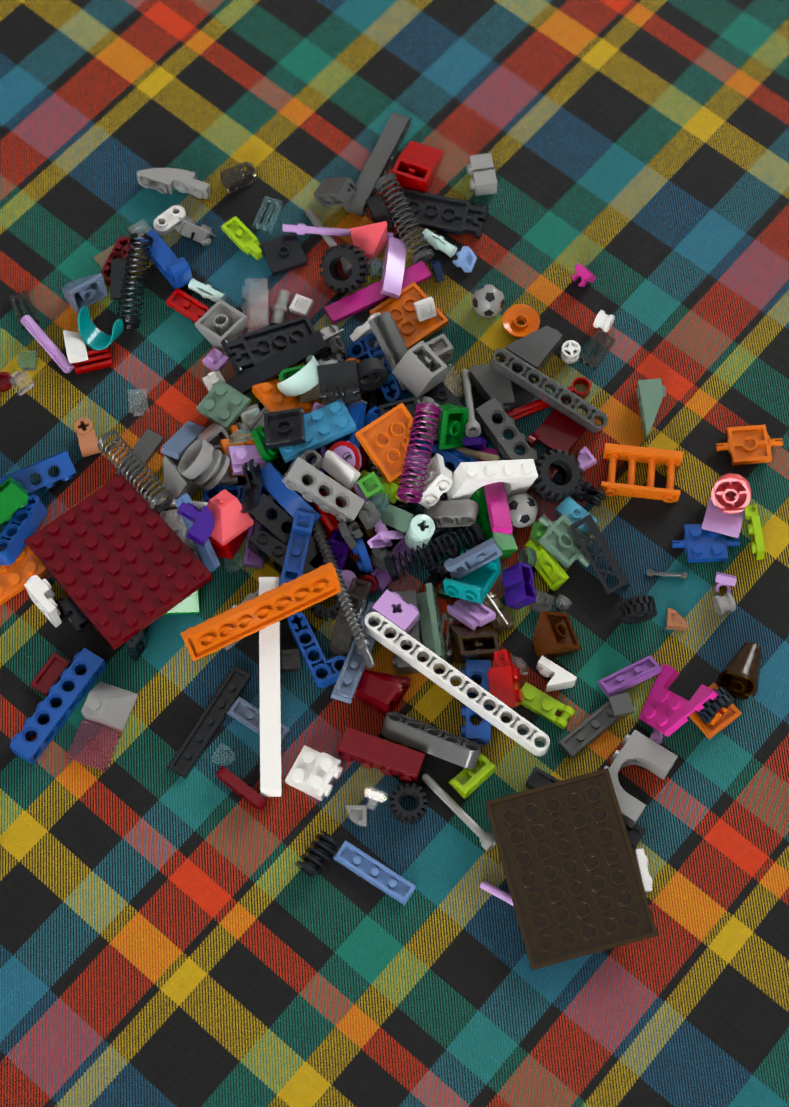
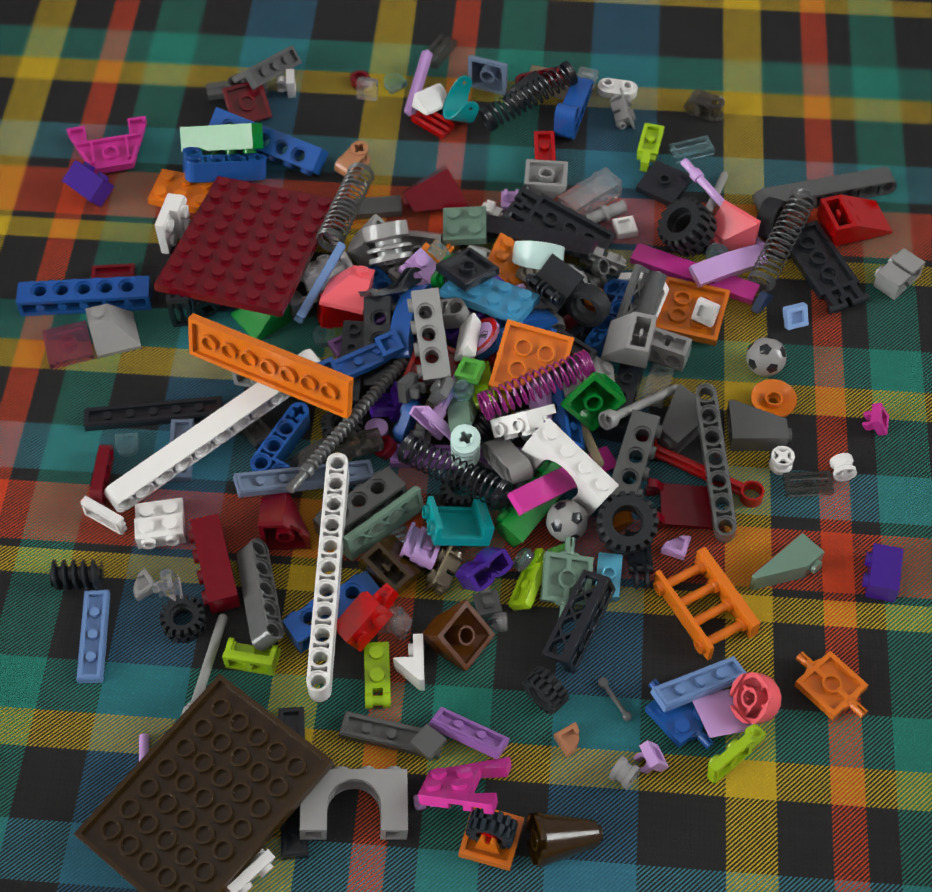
camera: 55 degrees right, 10 degrees down
(138, 401) = (418, 171): clear bracket -> none
(168, 402) = (434, 192): none -> dark red slope
(170, 179) = (654, 64): light grey slope -> none
(181, 440) = (415, 221): sand blue tile -> none
(197, 287) = (572, 154): light aqua pin -> none
(202, 522) = (323, 272): dark purple brick -> none
(279, 807) = (103, 515): none -> white tile
(335, 191) = (759, 174): dark grey hinge -> none
(393, 602) = (363, 478): lavender brick -> none
(439, 243) = (791, 284): light aqua pin -> none
(473, 559) = (472, 505): sand blue plate -> none
(474, 443) = (600, 435): dark purple tile -> none
(695, 357) = (883, 572): none -> dark purple brick
(696, 517) = (697, 684): none -> medium blue tile

